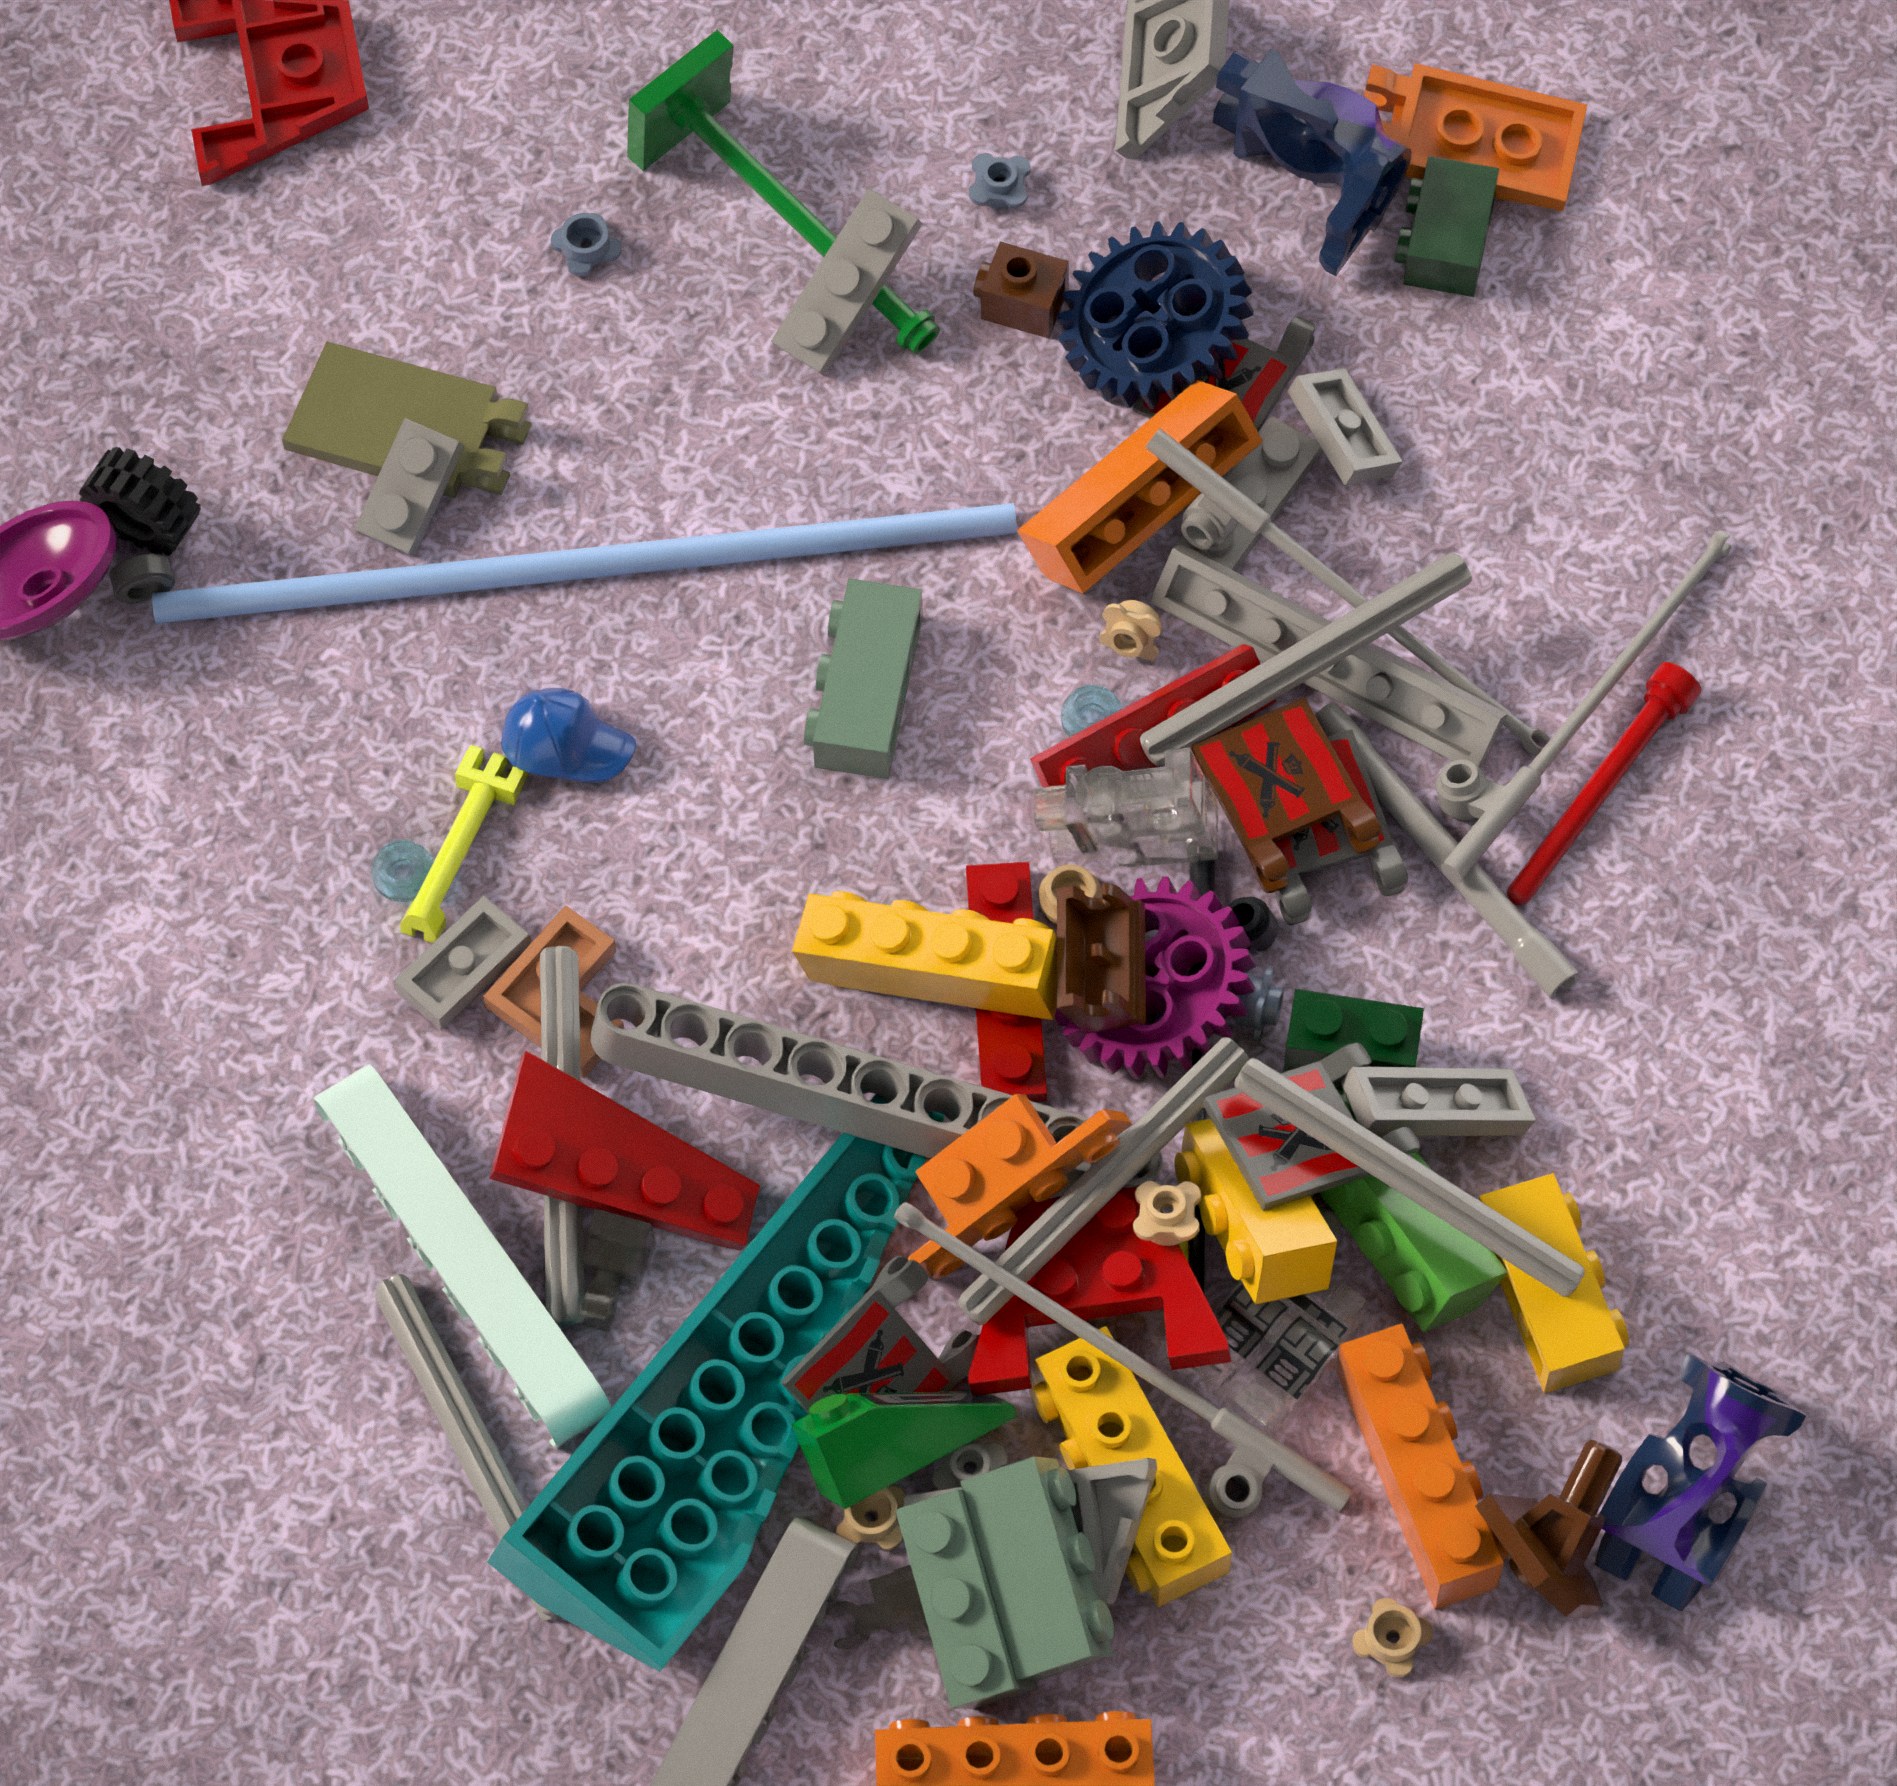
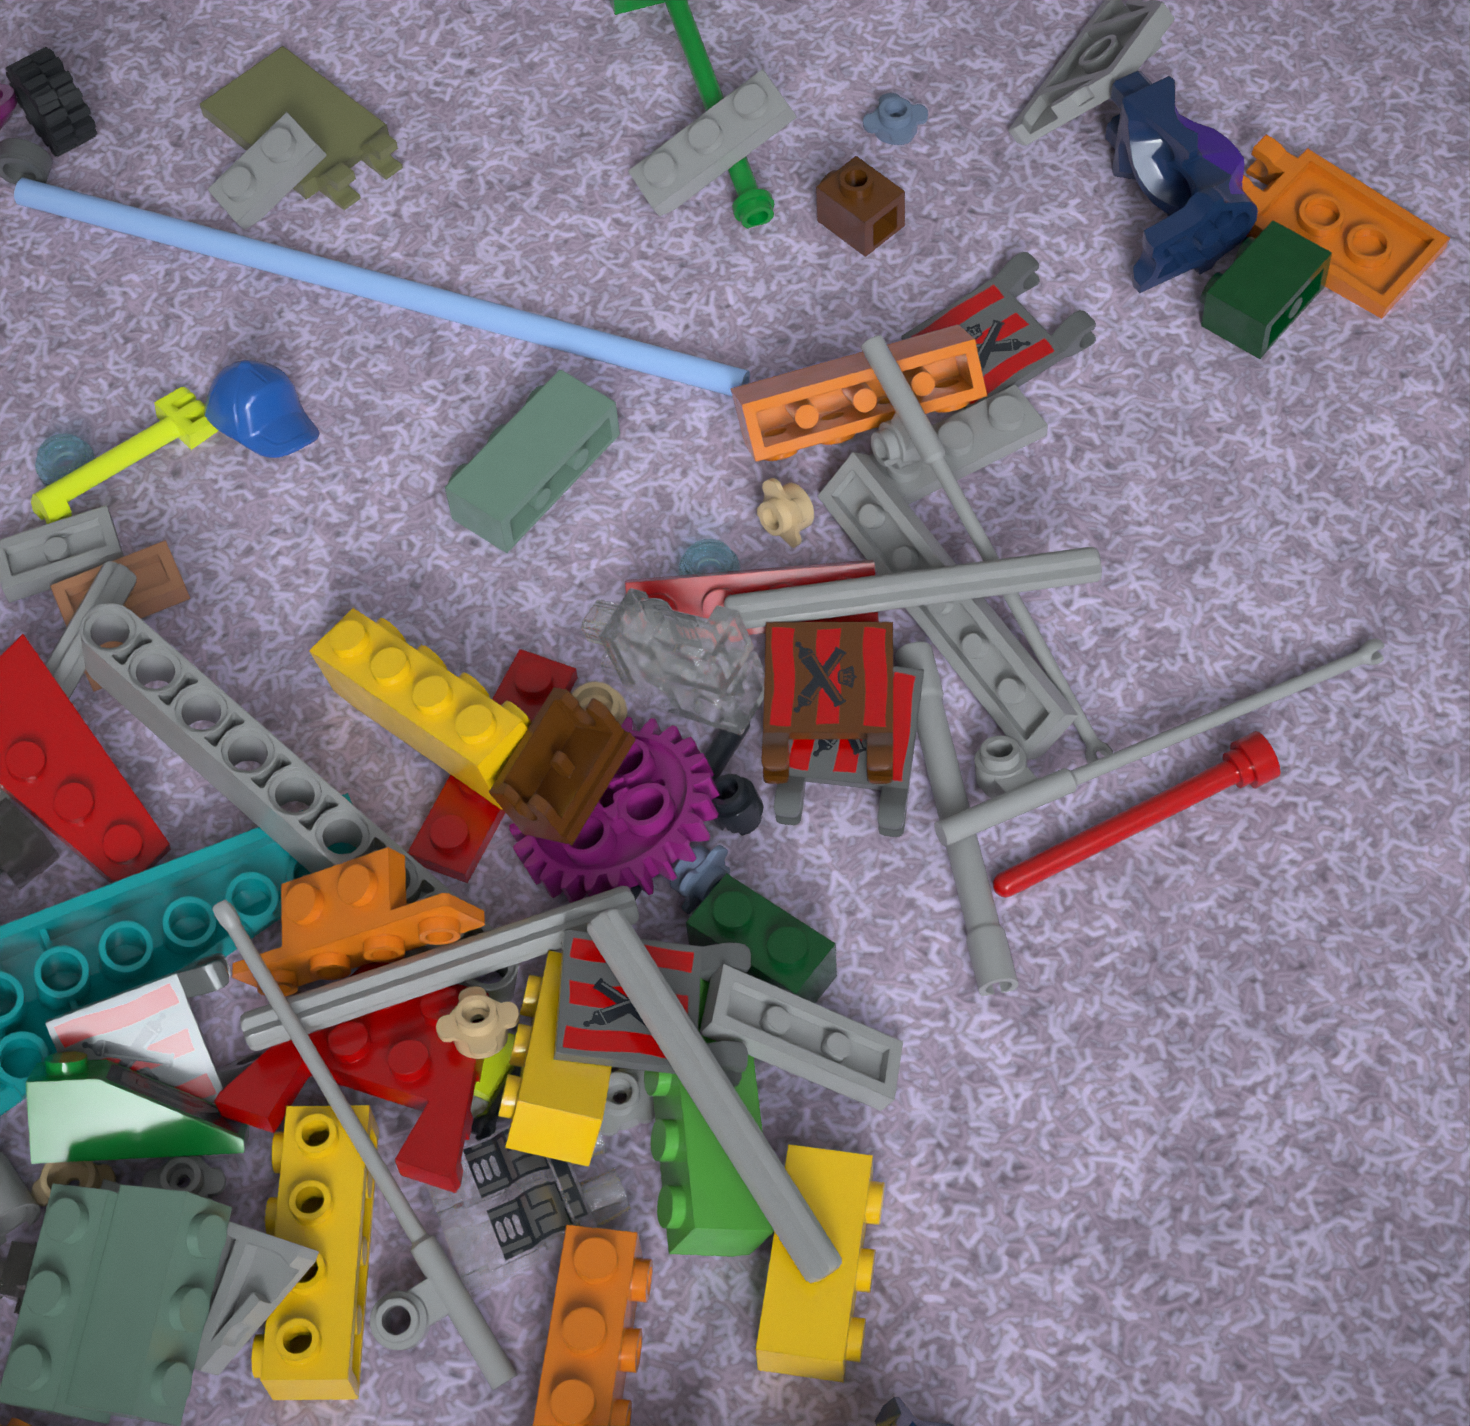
camera: 30 degrees right, 5 degrees down
(584, 228) = (531, 47): sand blue plate -> none
(1155, 314) = (958, 262): dark blue gear -> none
(1344, 426) = (1075, 417): light grey plate -> none

